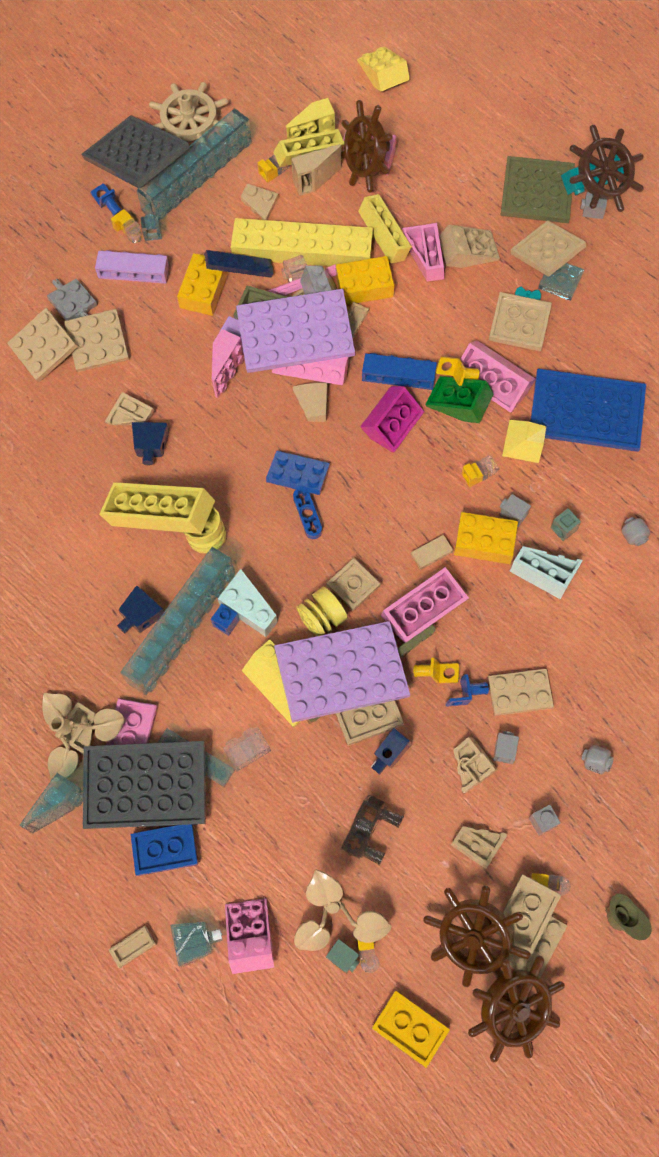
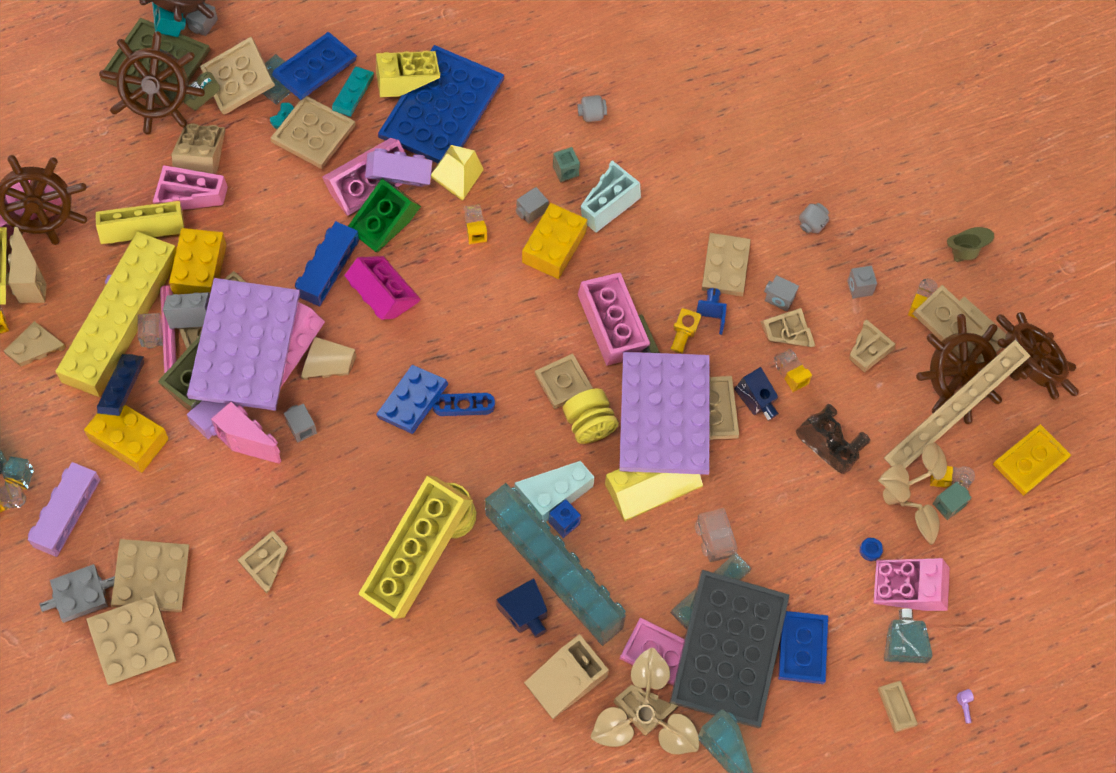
camera: 80 degrees left, 5 degrees down
(89, 660) = (567, 676): none -> tan slope
(149, 440) = (312, 546): dark blue torso -> none
(154, 1007) = (963, 699): none -> lavender hand
(250, 398) = (300, 422): none -> light grey brick
(275, 891) = (871, 549): none -> blue tile
(429, 777) = (792, 370): none -> leg
(431, 552) = (550, 297): tan tile -> none
(433, 938) = (958, 405): none -> tan plate
(457, 370) = (355, 203): yellow bracket -> none
(504, 391) = (398, 168): none -> lavender brick
(506, 186) = (152, 82): none -> reddish brown piece
(521, 226) = (206, 82): none -> olive leg
(571, 337) = (353, 91): none -> teal plate
(582, 299) = (314, 65): none -> blue plate
(605, 367) = (405, 71): none -> light yellow slope

